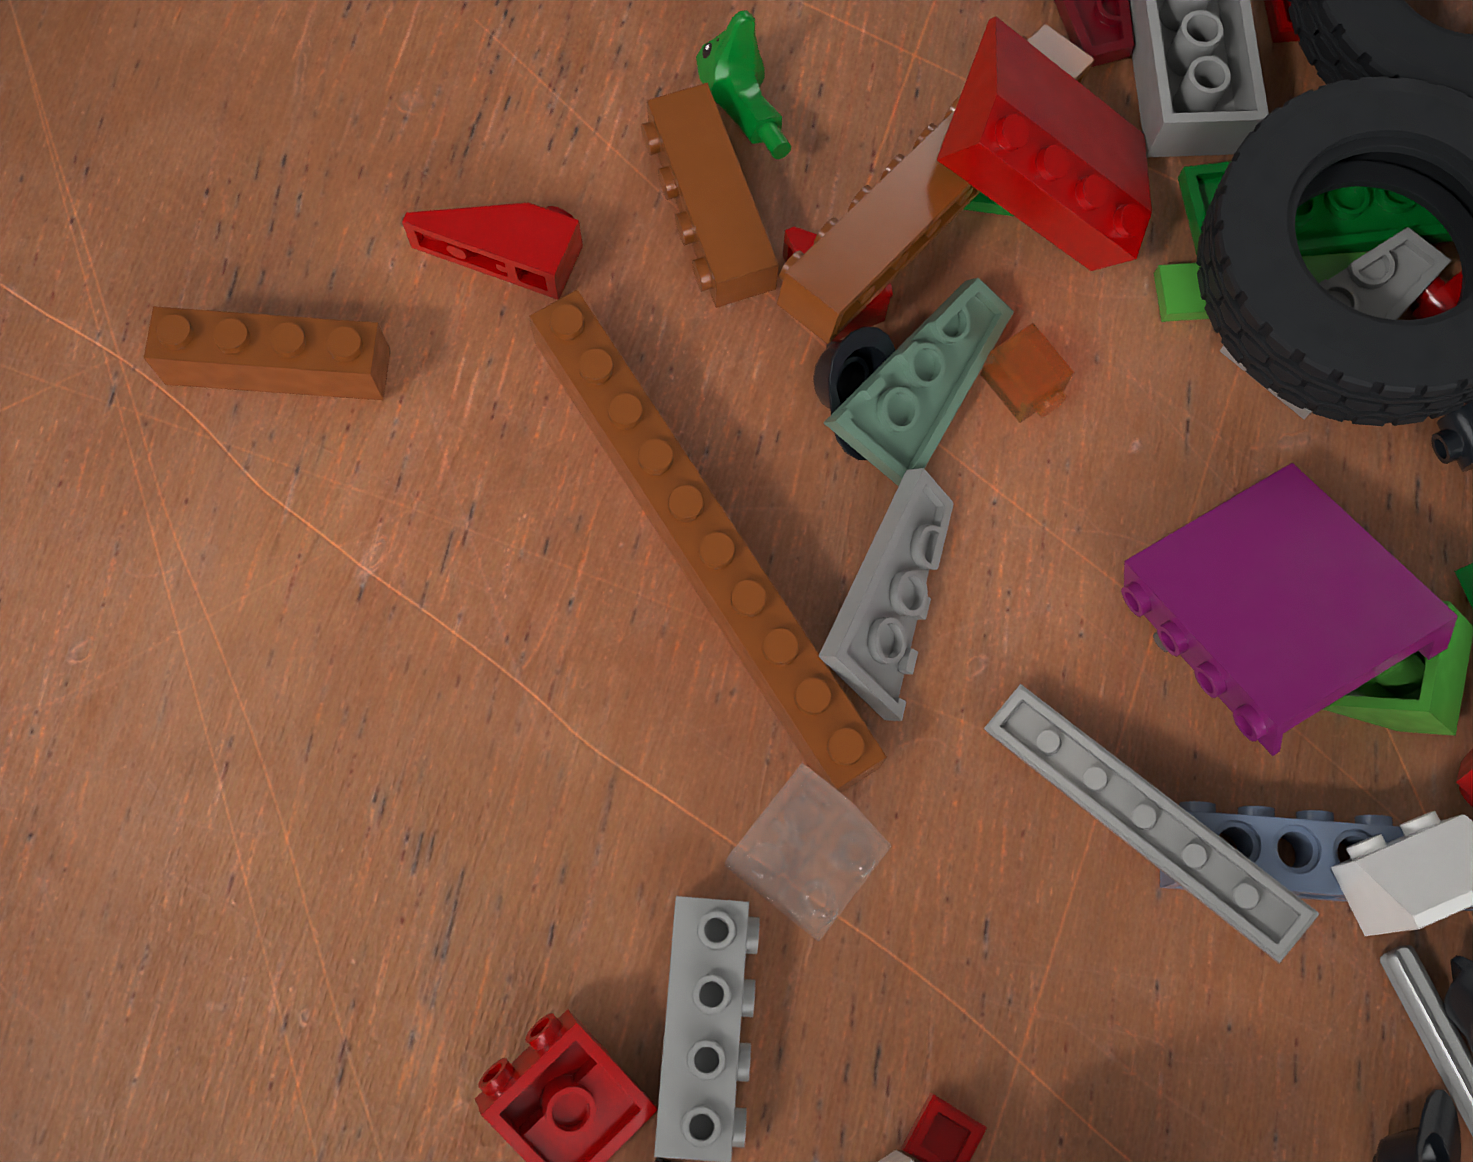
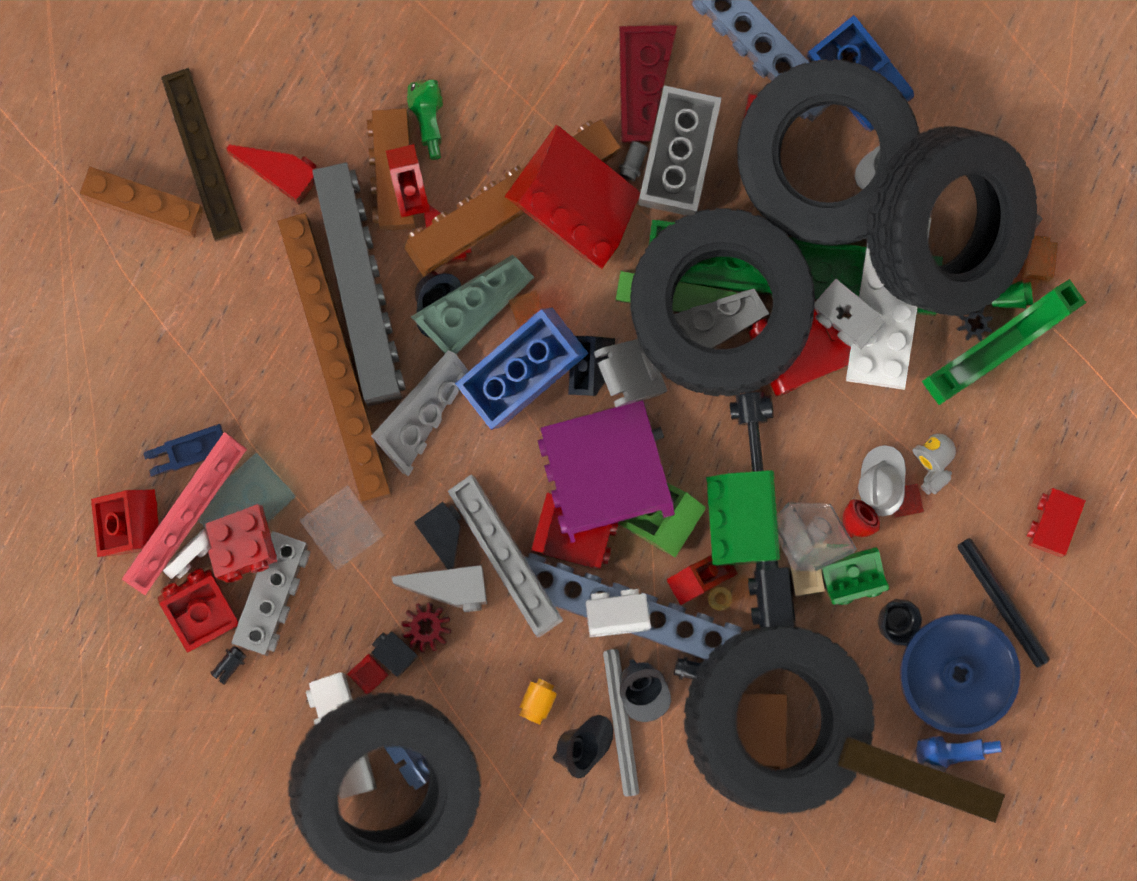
camera: 20 degrees right, 10 degrees up
(365, 258) = (202, 154): none -> dark brown tile
(375, 961) = (124, 521): none -> red slope
(467, 783) = (185, 450): none -> dark blue hinge
(486, 918) = (184, 514): none -> coral tile
(504, 1015) = (179, 564): none -> white plate
(600, 861) = (246, 487): none -> clear light blue tile
(619, 942) = (240, 544): none -> red plate
(711, 392) = (357, 284): none -> dark grey brick
(749, 186) = (407, 180): none -> red slope
(986, 1080) = (393, 653): none -> black brick
(1004, 812) = (442, 532): none -> black slope
(1050, 997) = (416, 629): none -> dark red gear
(1062, 455) = (521, 368): none -> blue brick
(1082, 908) = (453, 587): none -> light grey slope
(1115, 83) = (630, 168): none -> dark grey pin
(1172, 425) = (586, 375): none -> black slope
(1220, 764) = (589, 546): none -> red panel
(1252, 418) = (630, 372): none -> light grey container
(1300, 1097) = (537, 701): none -> light orange brick

